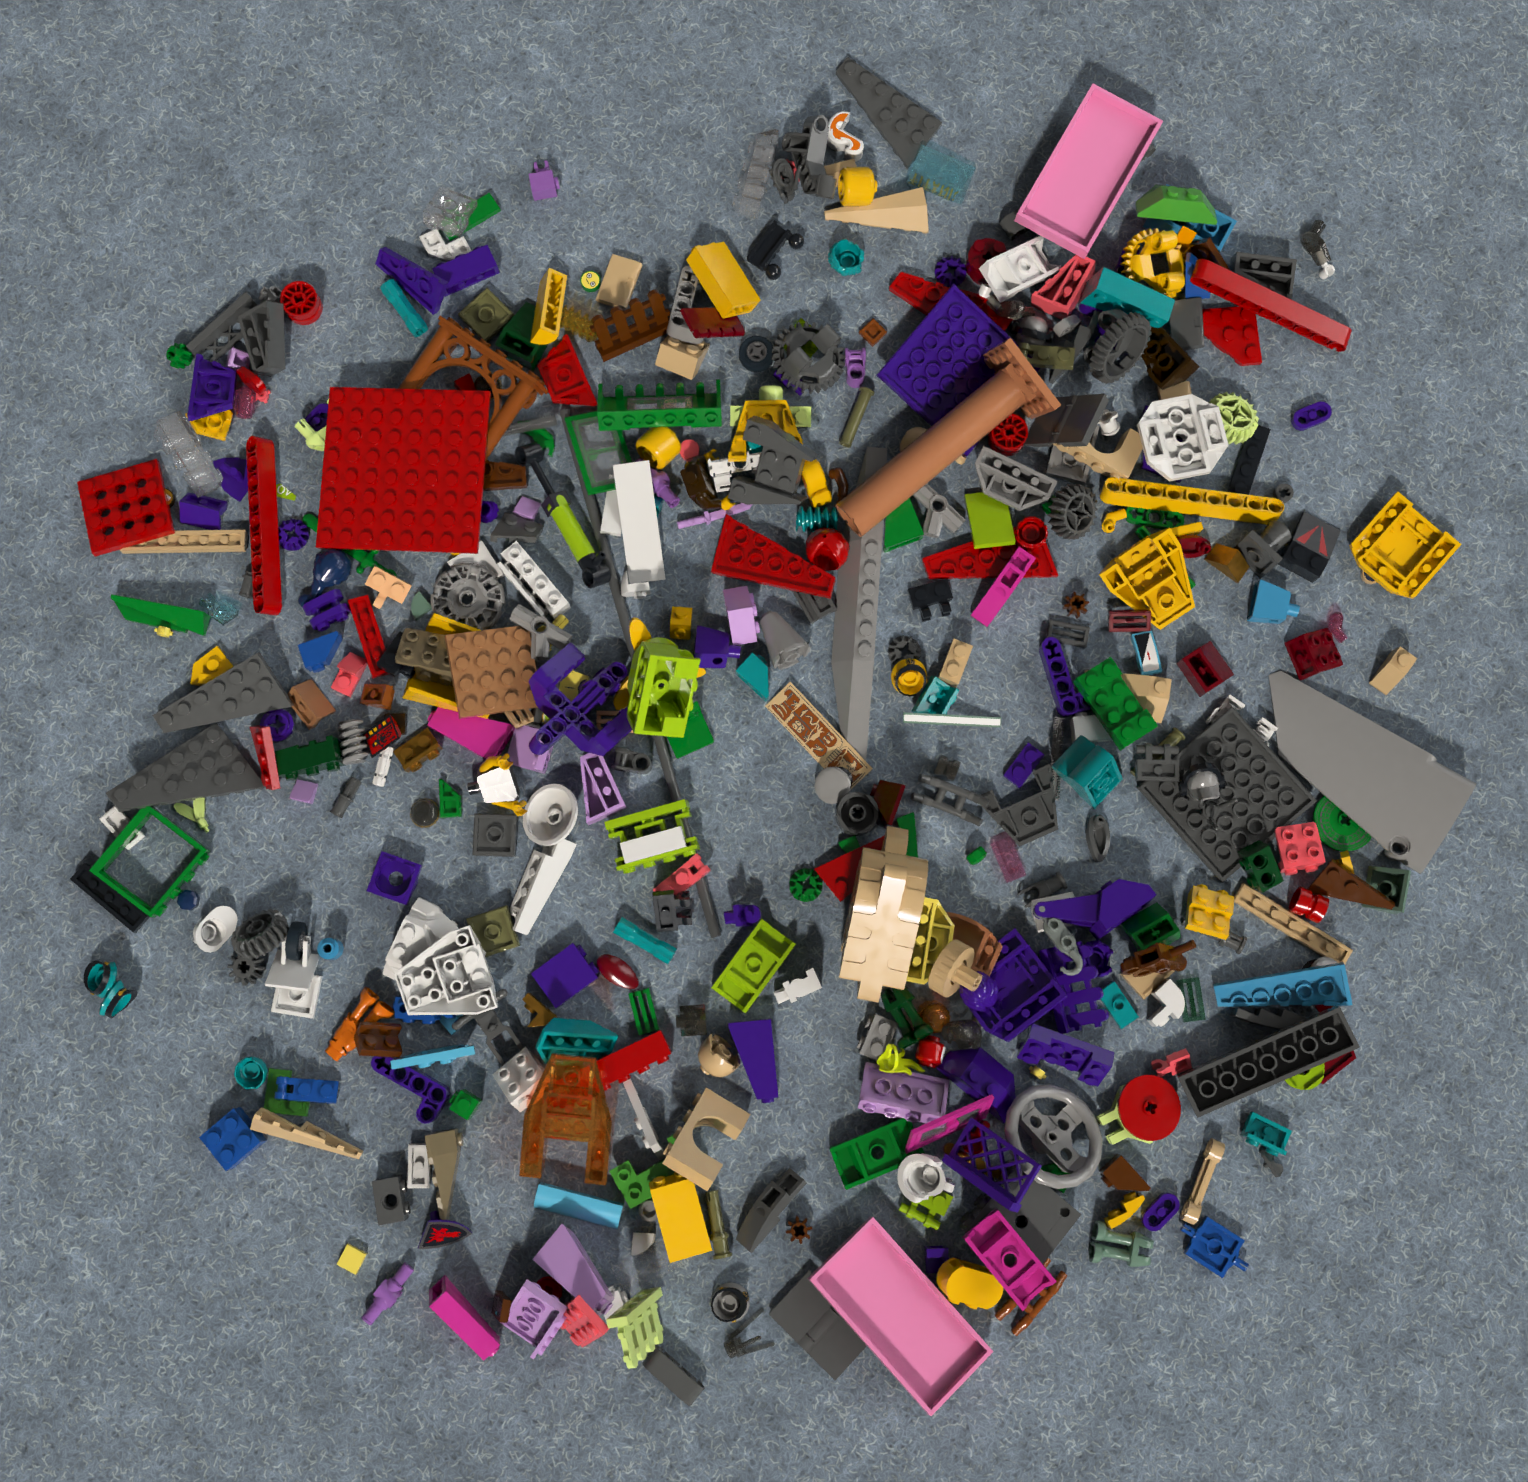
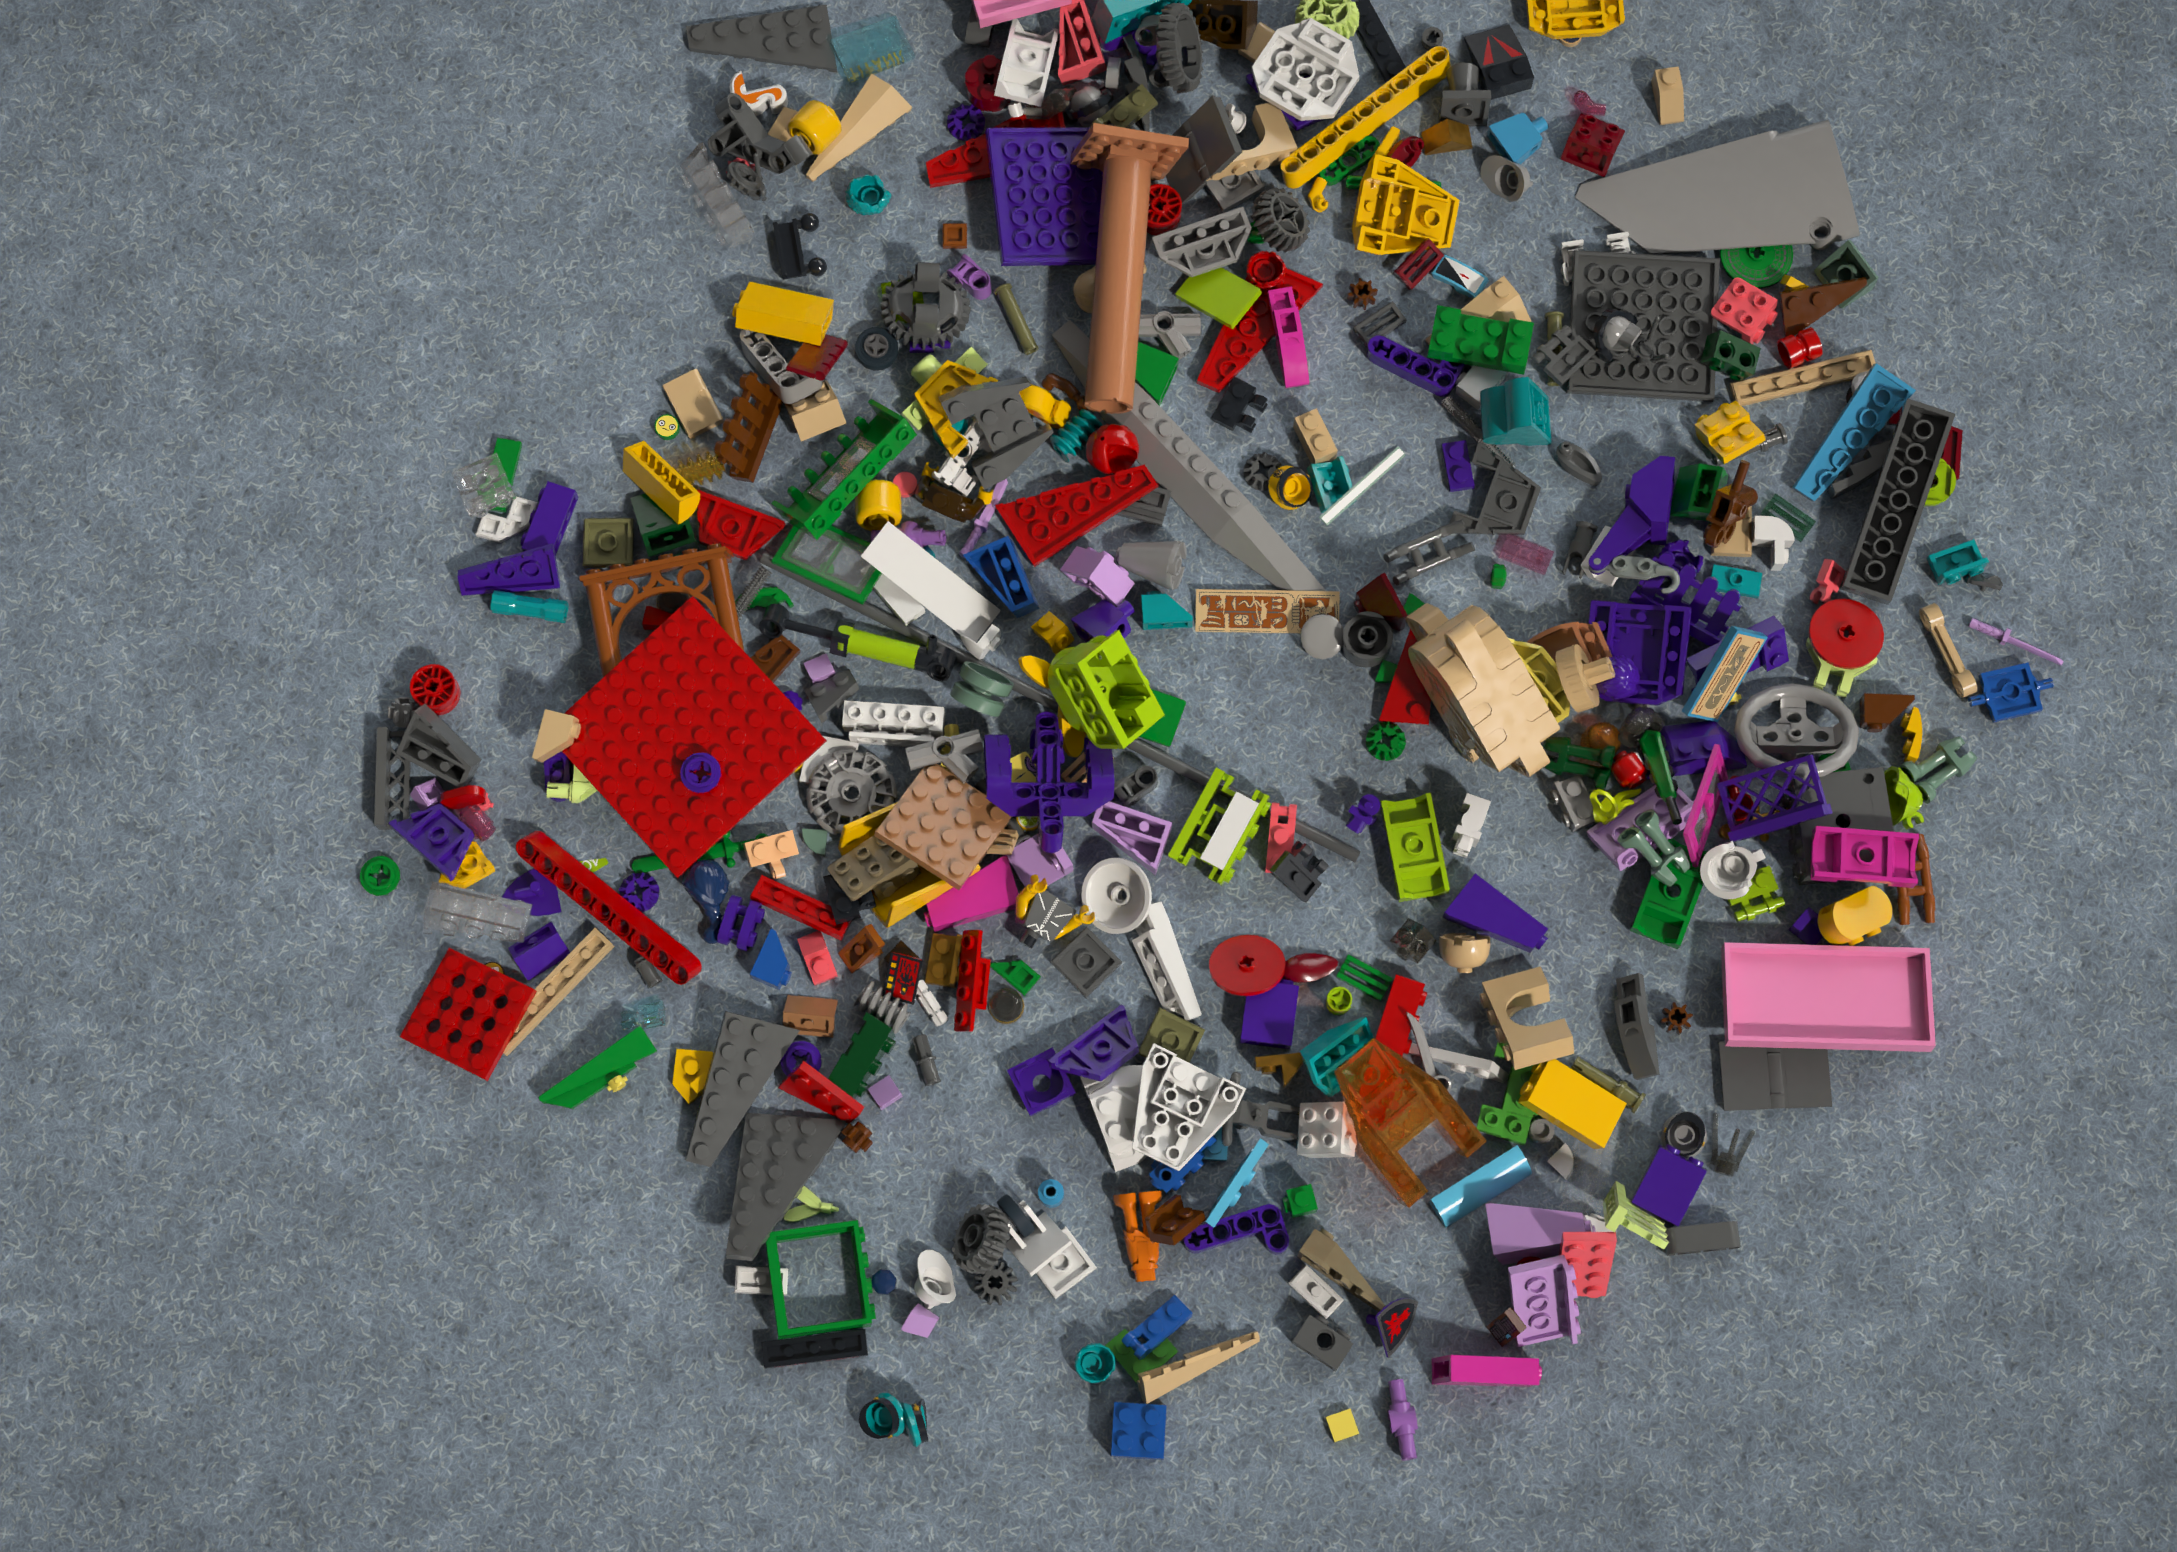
camera: 40 degrees left, 5 degrees down
(153, 379) = (373, 867): none -> green gear
(179, 356) = (375, 840): green gear -> none
(182, 944) = (920, 1321): none -> lavender slope
(259, 801) = (857, 1137): none -> reddish brown gear
(329, 393) = (555, 734): none -> tan slope
(377, 499) = (694, 763): none -> dark purple gear
(416, 780) = (972, 981): none -> red bracket
(445, 894) = (1099, 1049): none -> dark purple wing
(543, 182) = (536, 384): medium lavender brick -> none
(566, 930) = (1230, 970): none -> red piece
(600, 614) = (981, 689): none -> sand green wheel
(613, 1010) = (1339, 996): none -> lime wheel
(620, 1110) = (1424, 1050): none -> light grey sword
(644, 940) = (1321, 914): teal axle -> none
(686, 1324) = (1669, 1184): none -> dark purple brick
(687, 561) = (1004, 573): none -> blue wedge
(900, 1100) = (1634, 838): none -> sand green piece
(944, 1076) = (1657, 762): none -> green sword
(947, 767) = (1399, 529): clear smoke wheel -> none
(1045, 1056) = (1724, 673): none -> tile
(1077, 1242) = (1903, 798): none -> lime helmet
(1161, 1214) = (1941, 709): dark purple plate -> none
(1205, 668) = (1520, 242): dark red slope -> none
(1237, 621) = (1505, 177): none -> light grey piece
(1247, 1209) = (2004, 637): none -> lavender sword

